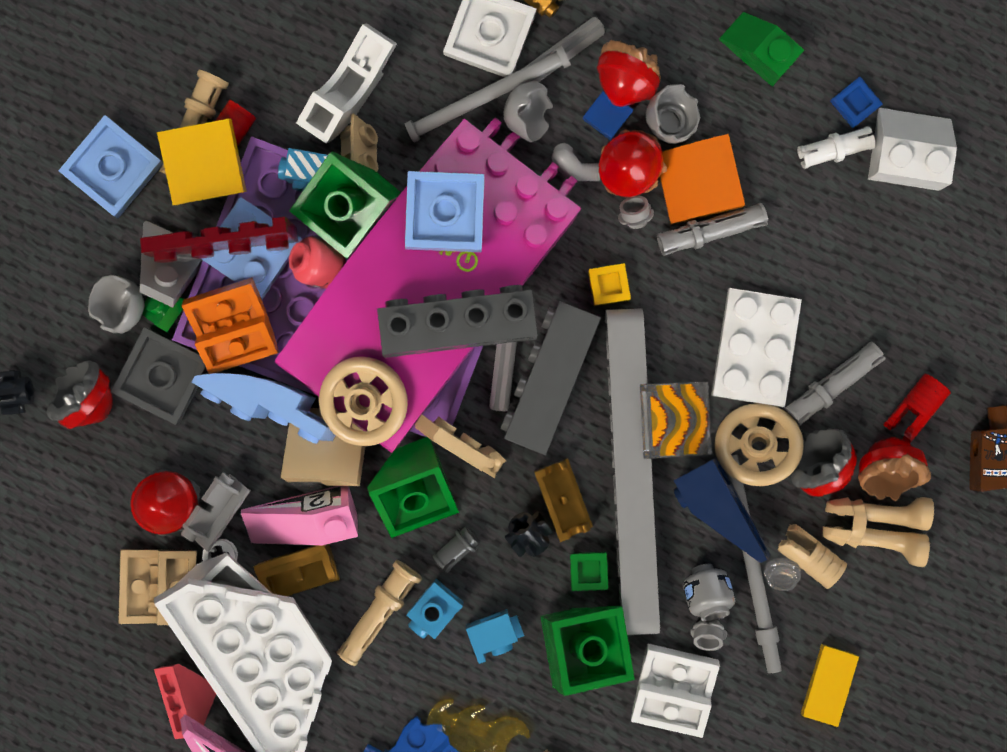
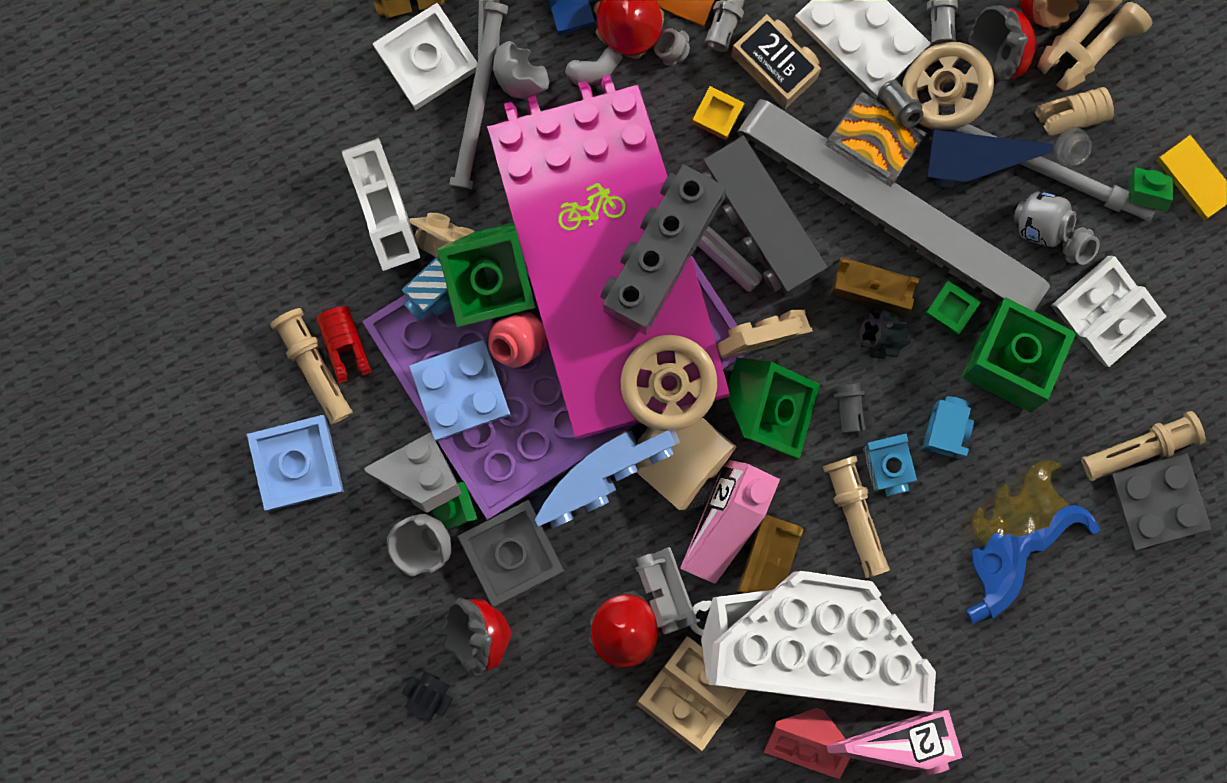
camera: 55 degrees left, 5 degrees down
(201, 161) = (354, 377): yellow tile -> none
(230, 326) = (515, 456): orange slope -> none
(249, 234) = (455, 369): dark red wing -> none
(444, 211) = (559, 192): light blue plate -> none
(682, 299) = (776, 60): none -> brick
(715, 427) = (906, 110): none -> dark grey pin
(792, 657) = (1151, 189): none -> green plate

